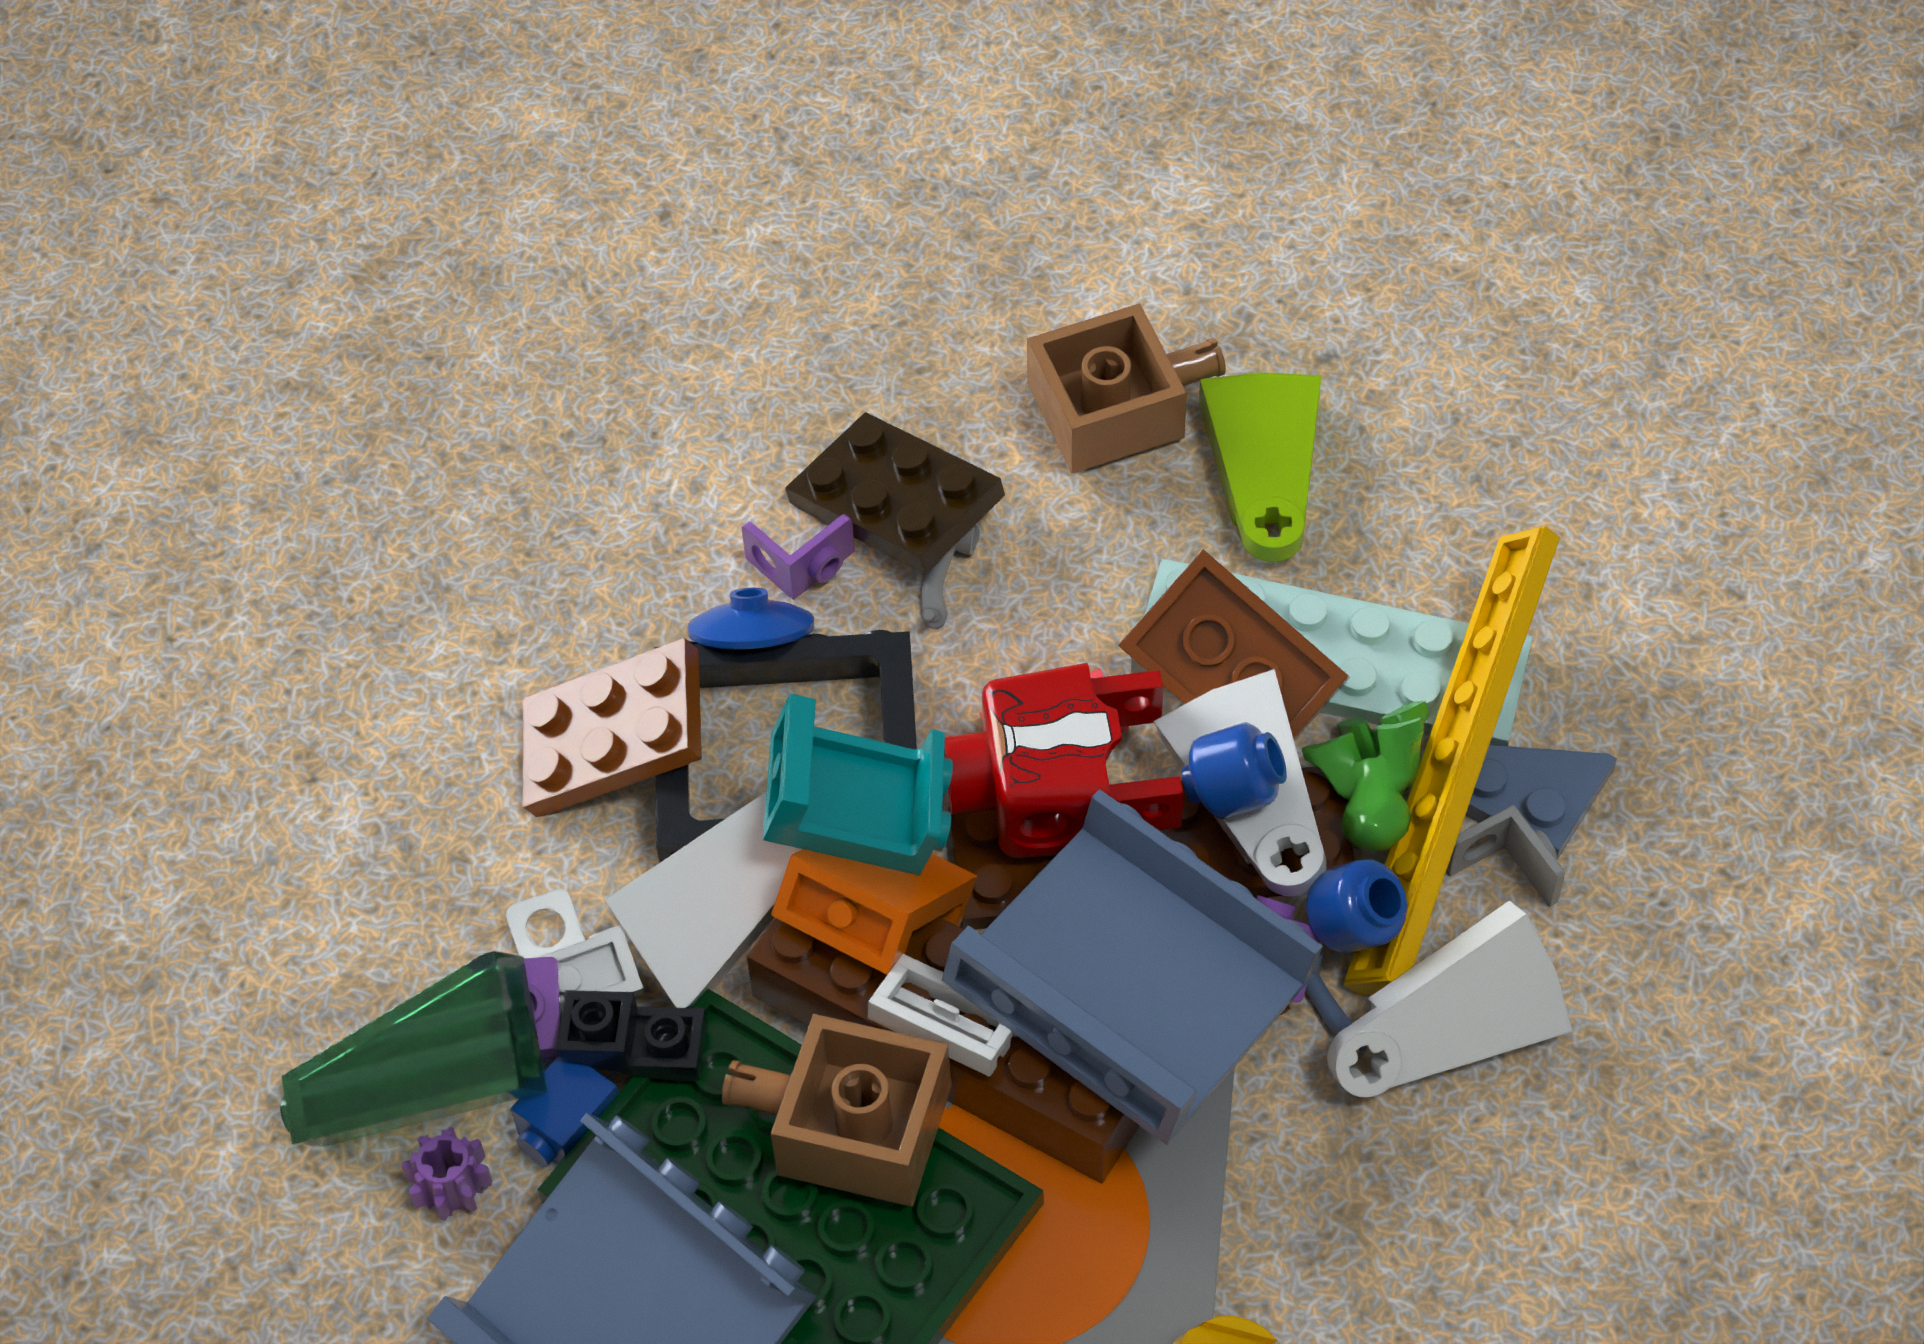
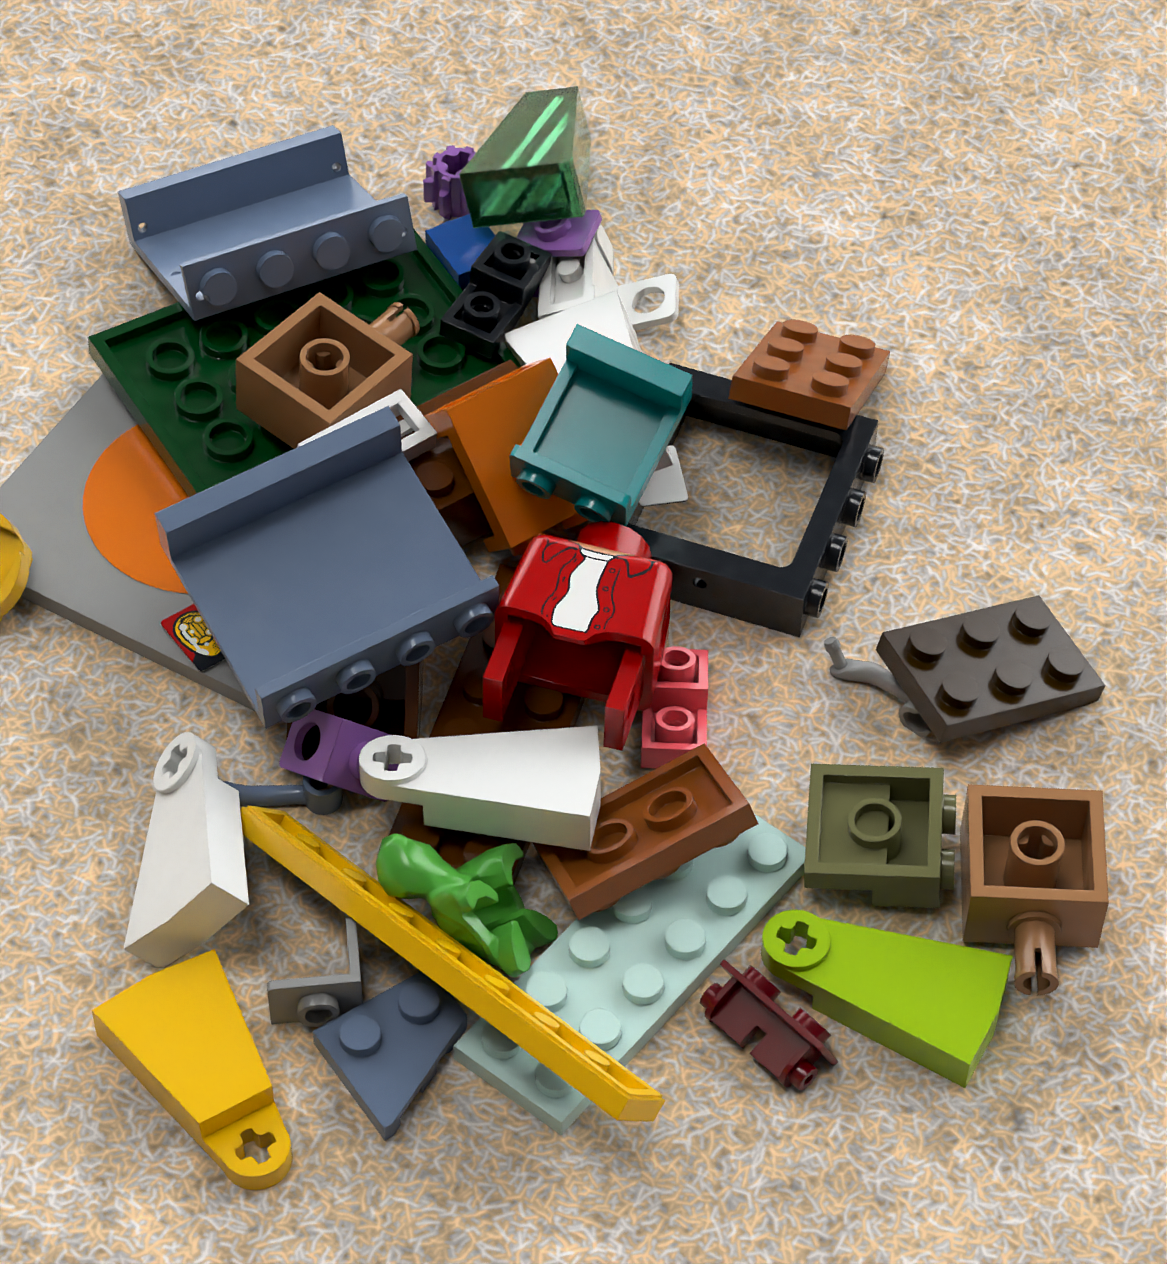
camera: 110 degrees right, 5 degrees down
(750, 622) = (879, 508): blue dish -> none
(811, 563) = (934, 575): medium lavender bracket -> none
(1125, 506) = (880, 833): none -> olive plate
(1191, 1146) = (193, 637): none -> sticker
(1234, 770) = (485, 724): blue head -> none
(1337, 547) = (789, 1042): none -> dark red hinge
(1356, 906) = (320, 800): blue head -> none
(1636, 925) = (200, 1063): none -> yellow piece

